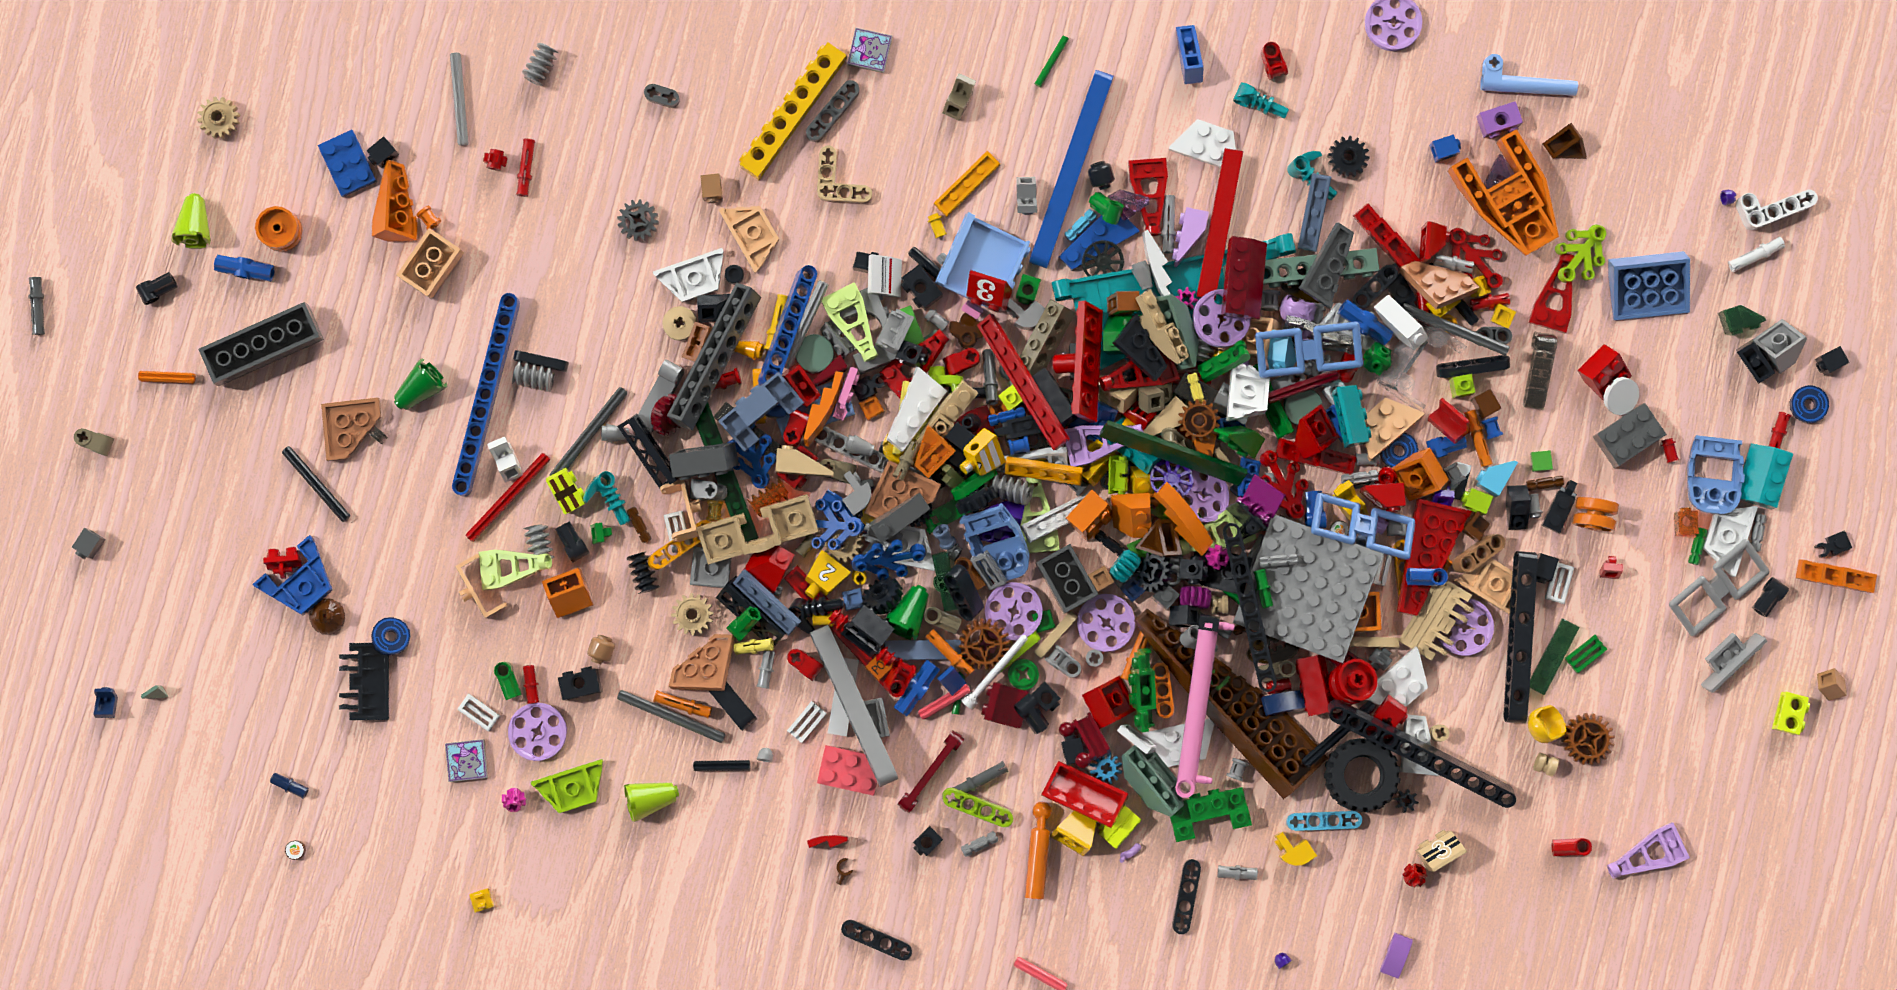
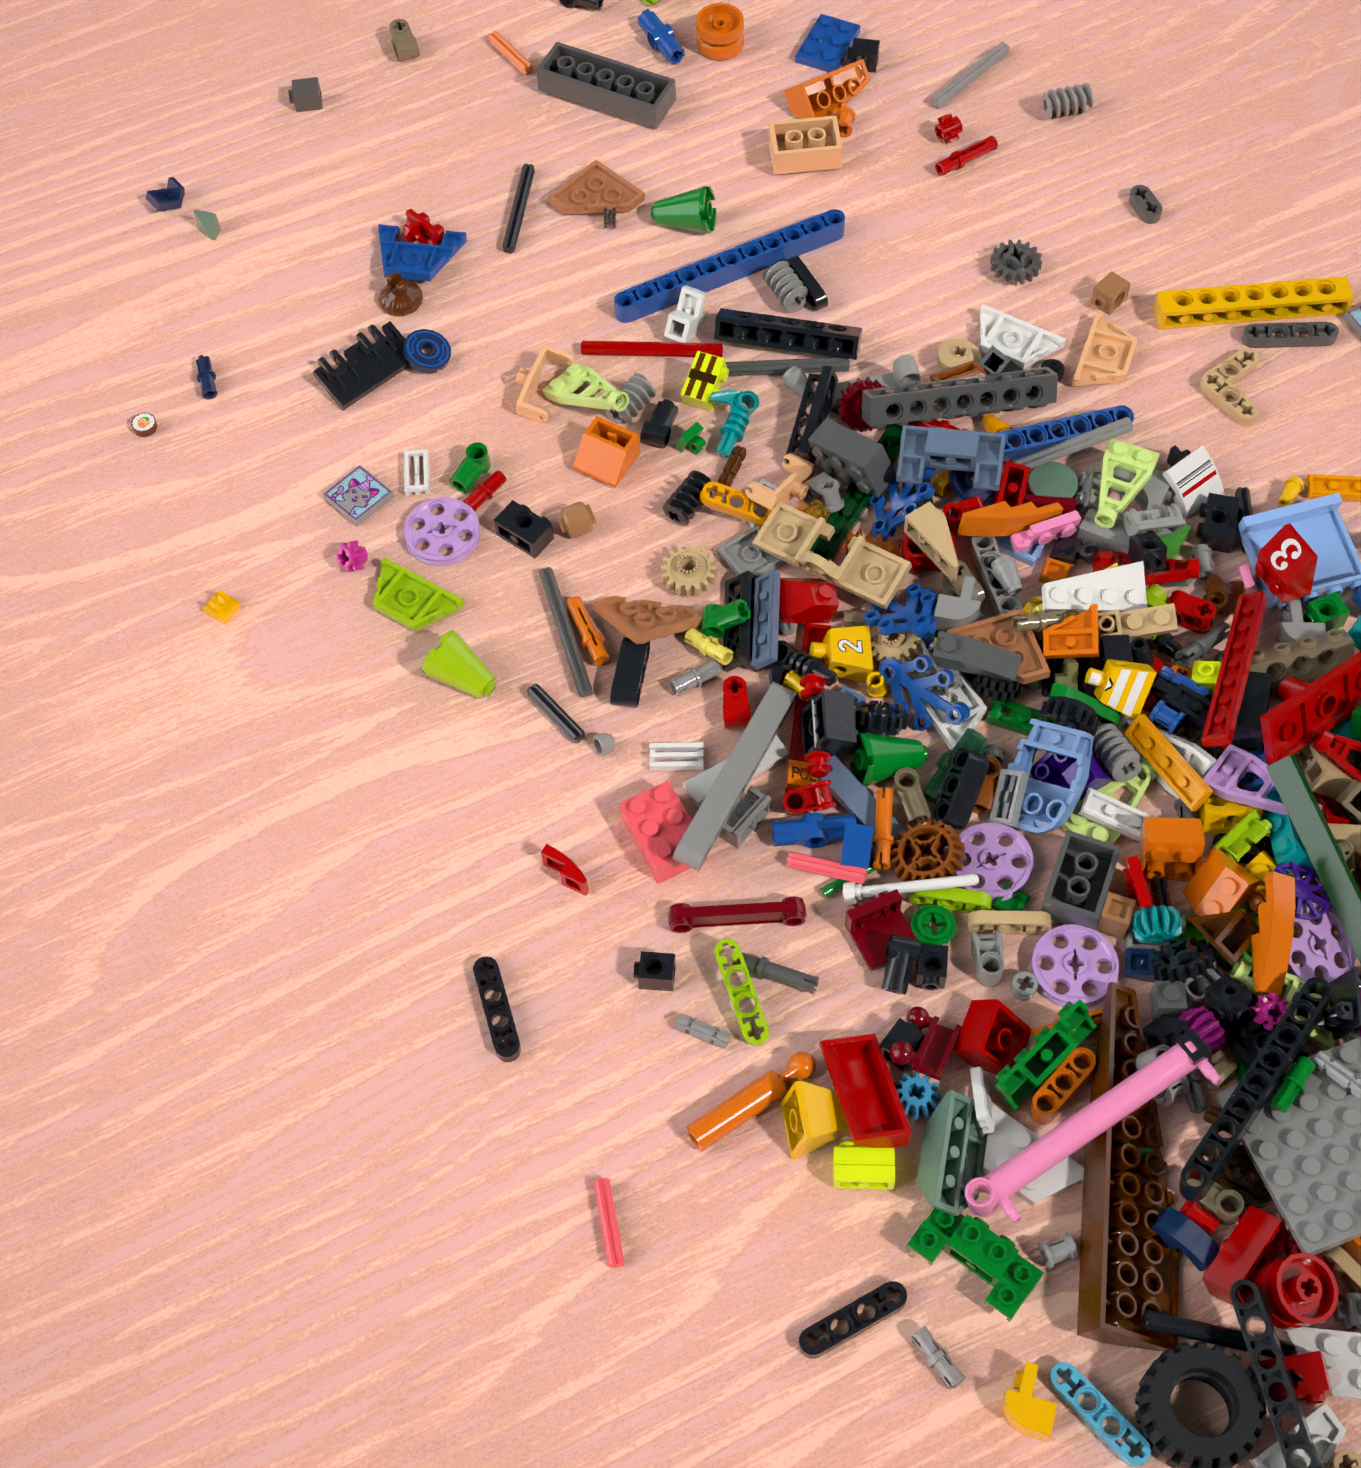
camera: 55 degrees right, 25 degrees down
(573, 409) = (788, 333): none -> black brick
(841, 876) = (540, 916): reddish brown piece -> none
(944, 536) = (999, 729): sand blue bush -> none
(1094, 553) = (1136, 883): none -> red wing
(1130, 853) = (840, 1208): lavender piece -> none

